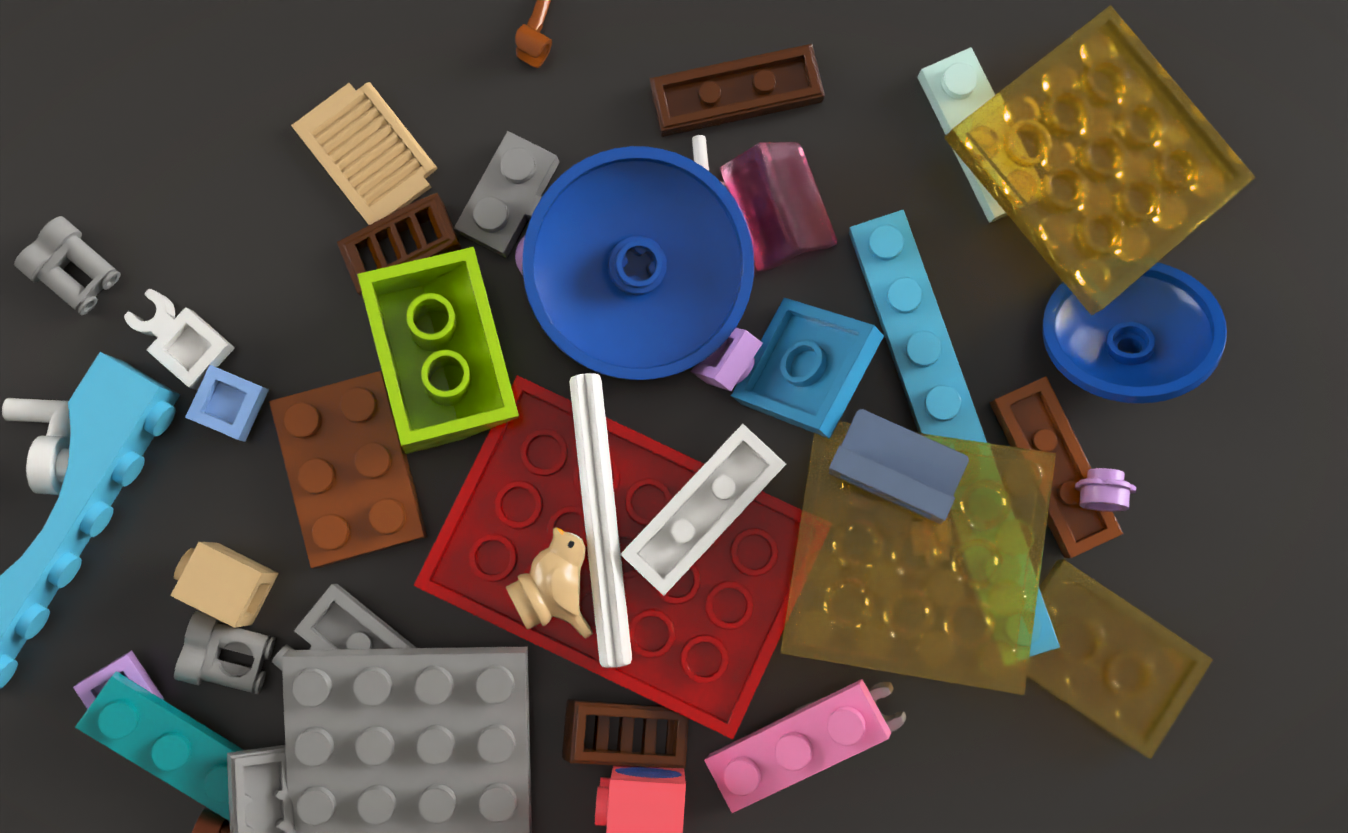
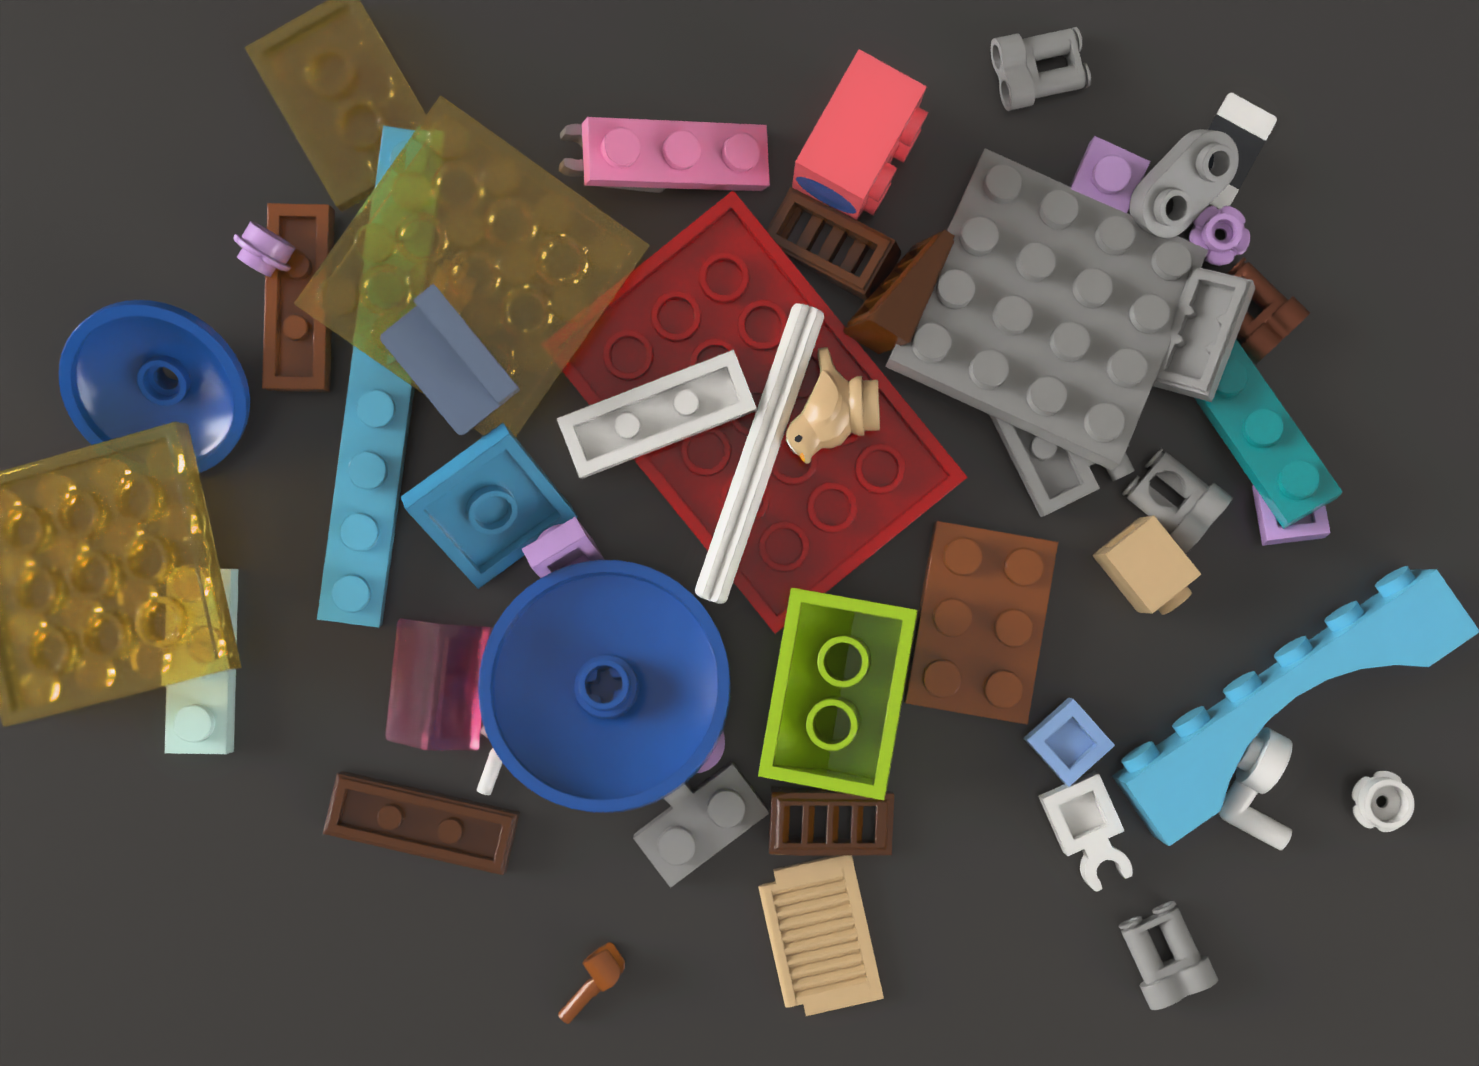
camera: 150 degrees left, 5 degrees up
(541, 712) = (900, 300): none -> reddish brown slope

